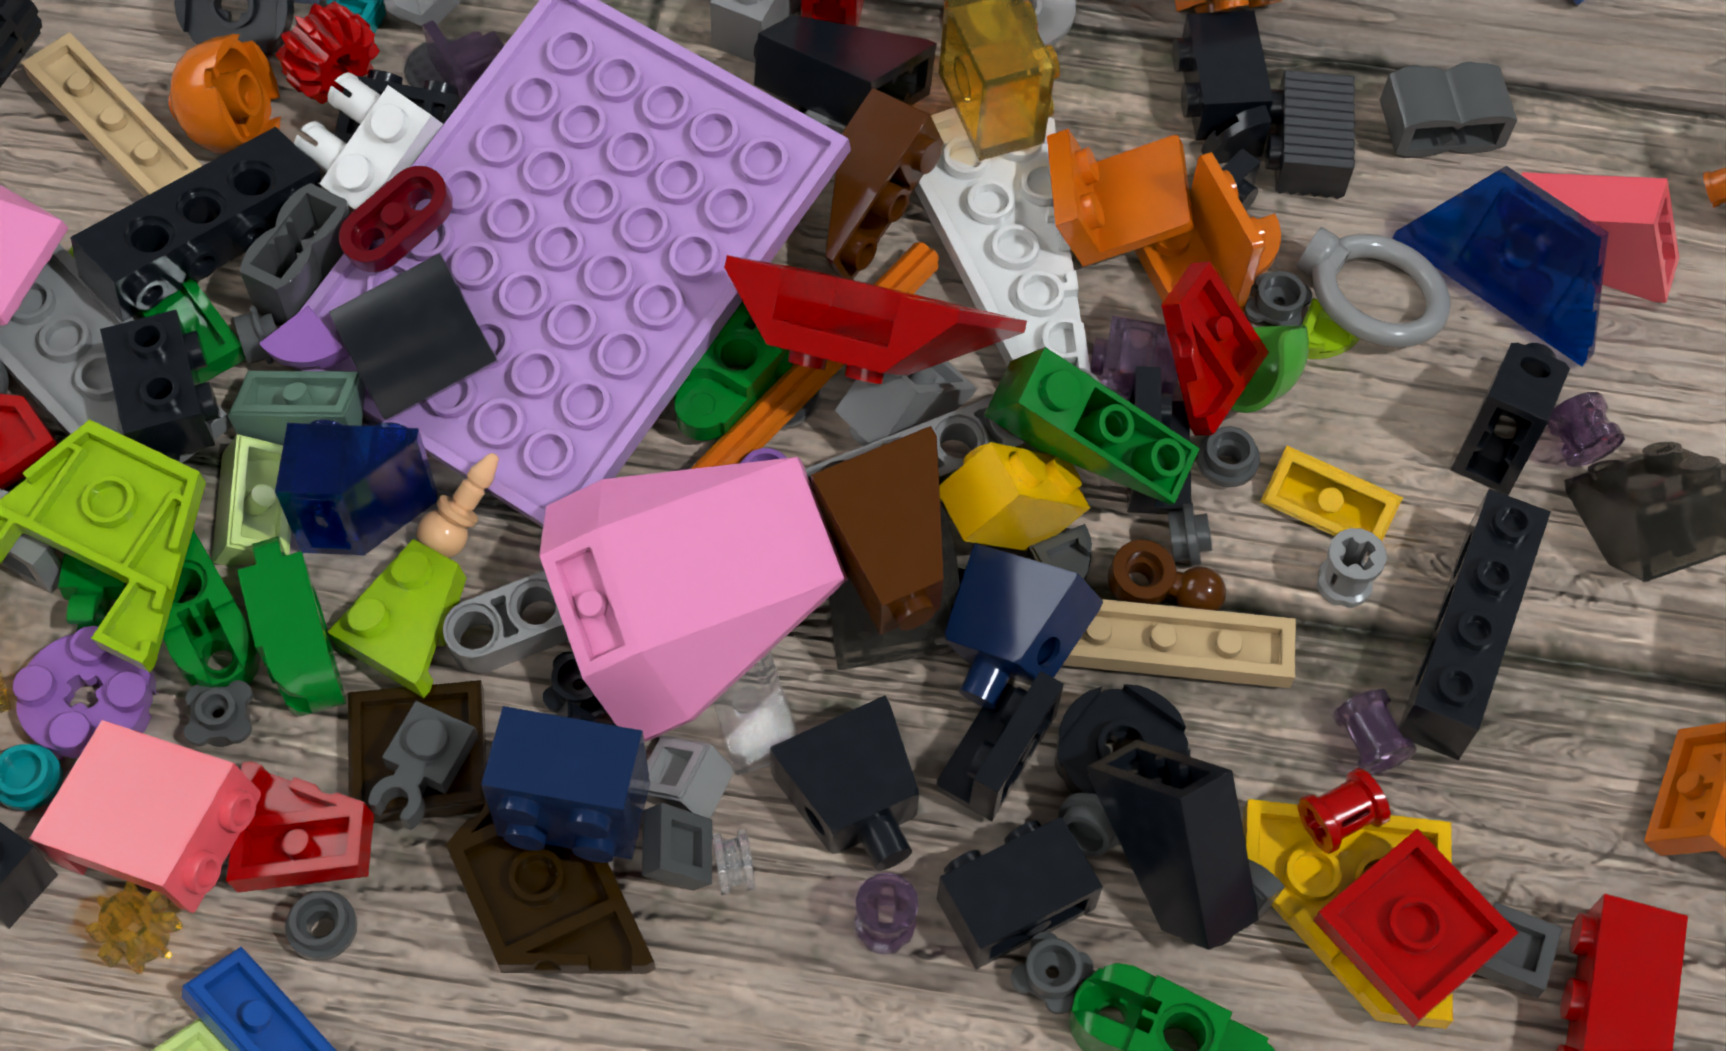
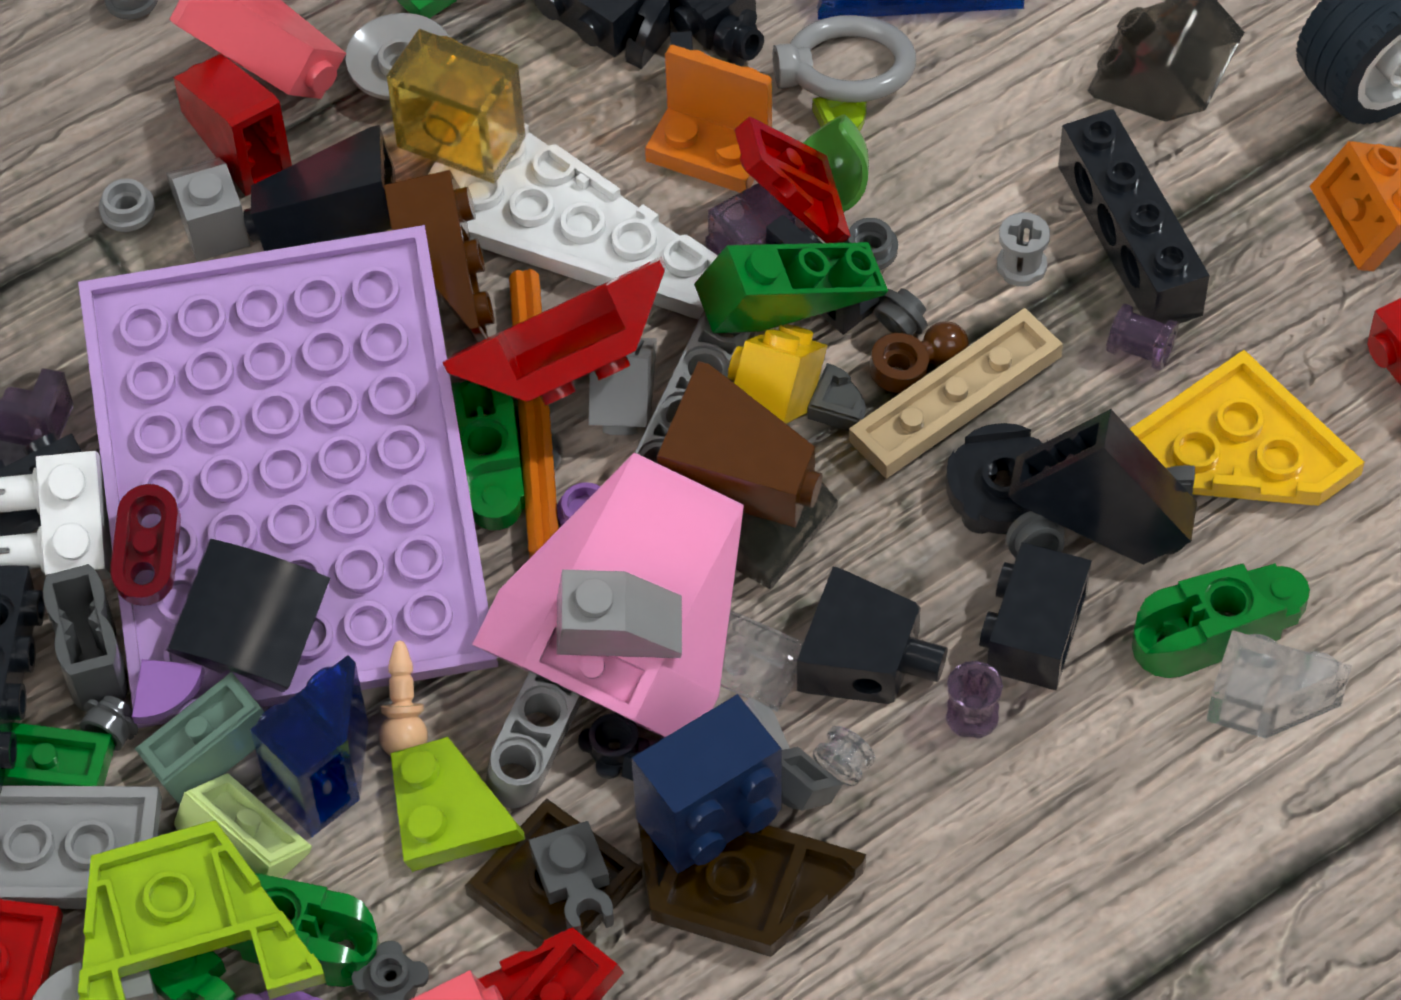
camera: 40 degrees left, 5 degrees down
(159, 383) = (95, 798): black brick -> none
(291, 629) = (391, 877): green piece -> none
(632, 579) = (617, 616): none -> light grey slope
(1000, 746) = (931, 538): black bracket -> none
(1015, 620) = (865, 451): dark blue torso -> none
(1052, 952) = (1108, 631): dark grey plate -> none
(1118, 200) = (623, 127): orange bracket -> none
(1280, 287) = (795, 115): dark grey plate -> none
(1303, 201) = (738, 38): none -> black plate
(1328, 496) = (957, 218): yellow slope -> none
(1344, 810) = (1181, 391): red bush -> none
(1415, 927) = (1292, 423): red plate -> none
(1526, 392) = (1016, 49): black torso -> none
(1528, 957) = (1354, 392): dark grey plate -> none
(1585, 429) = (1070, 45): clear purple wheel -> none

